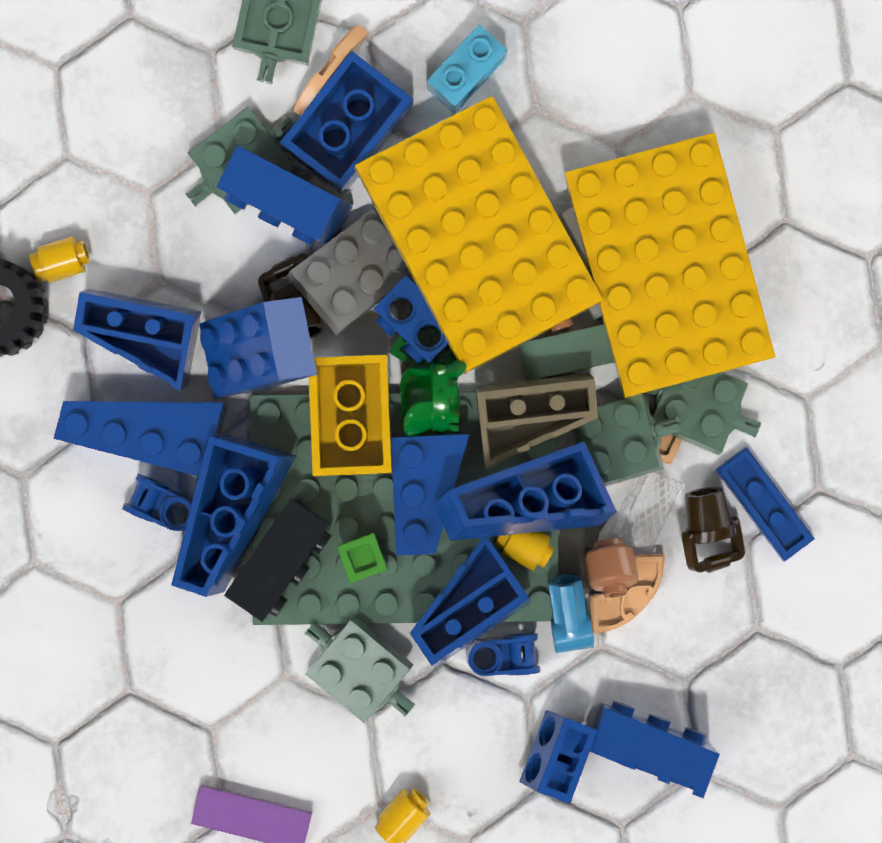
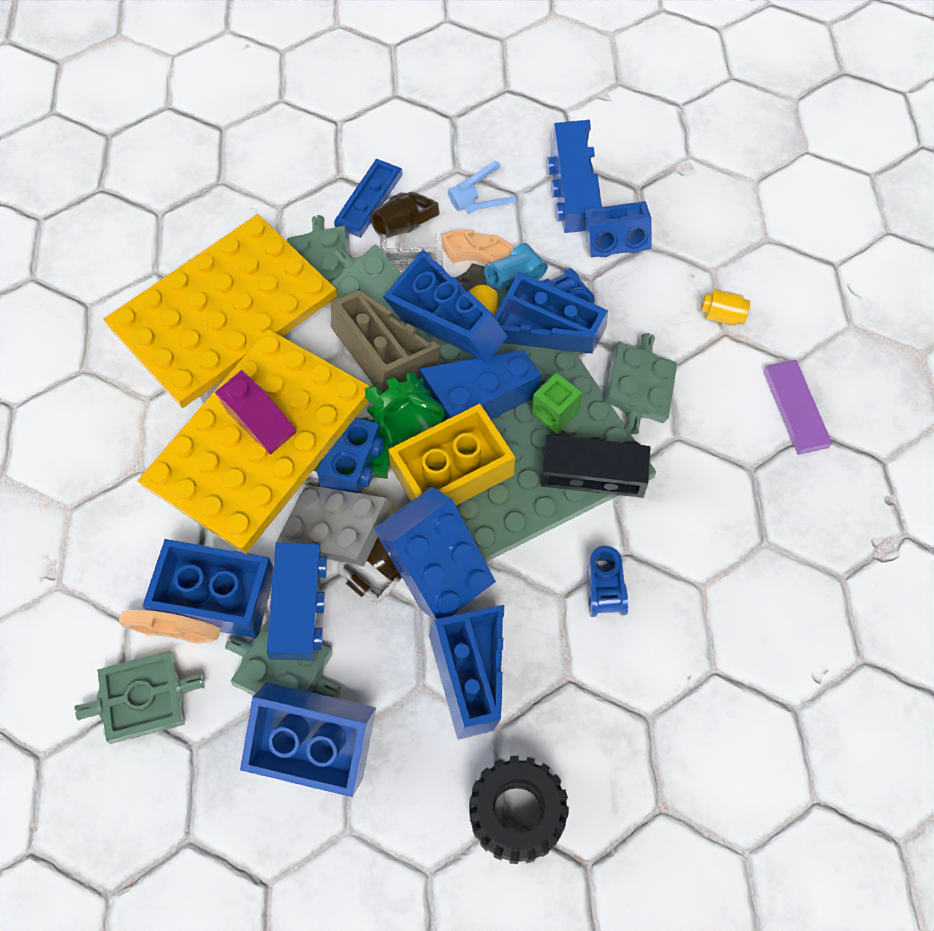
camera: 115 degrees left, 25 degrees down
(59, 260) = (445, 777): yellow brick -> none
(148, 151) = (307, 739): none -> blue brick
(149, 432) = (549, 612): blue wedge -> none
(227, 508) = (564, 521): blue wedge -> none
(467, 69) = (125, 522): medium azure brick -> none
(487, 238) = (255, 412): none -> magenta slope
(566, 353) = (318, 341): sand green beam -> none
(611, 567) = (466, 252): nougat head -> none
(706, 614) = (464, 194): none -> light blue plant

